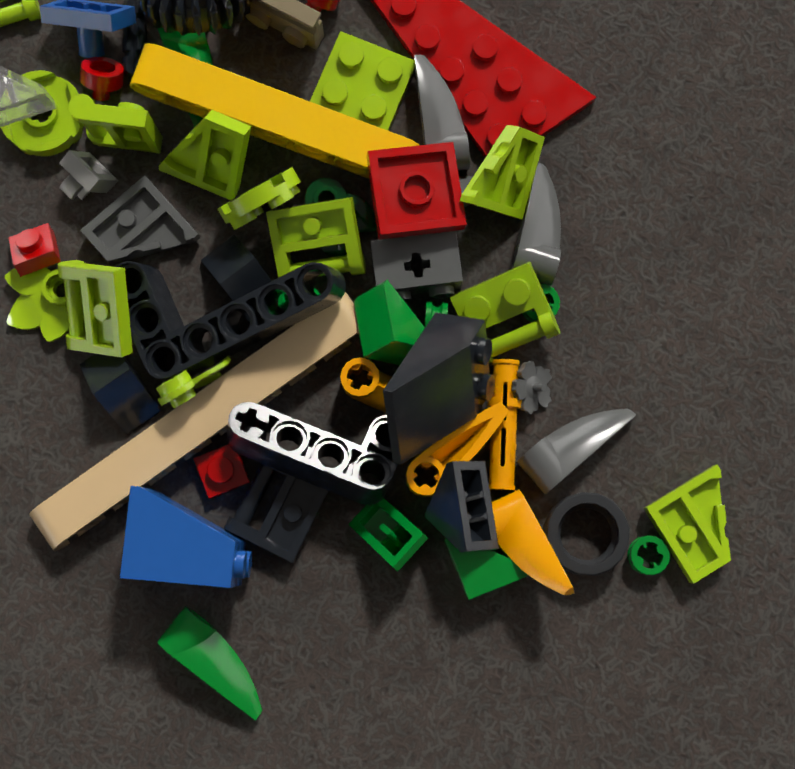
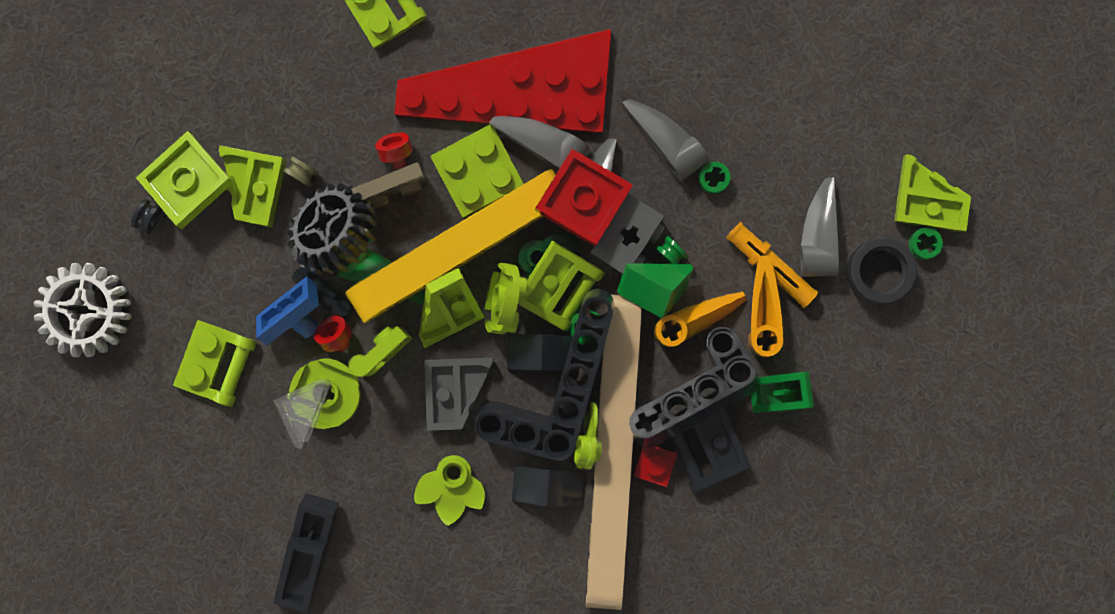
camera: 50 degrees left, 5 degrees up
(34, 249) = (414, 470): red plate -> none
(85, 175) = (392, 397): light grey tile -> none
(96, 308) = (495, 454): lime plate -> none
(179, 545) = (687, 526): blue slope -> none
(211, 659) = (768, 564): green piece -> none
(438, 384) = (721, 285): black slope -> none
(464, 508) = (807, 334): black slope -> none
(483, 570) = (849, 353): green slope -> none
(505, 298) = (694, 201): lime plate -> none
(506, 173) = (618, 130): lime wing -> none
(527, 544) = (854, 313): light orange piece -> none
(532, 387) = (763, 229): dark grey plant -> none

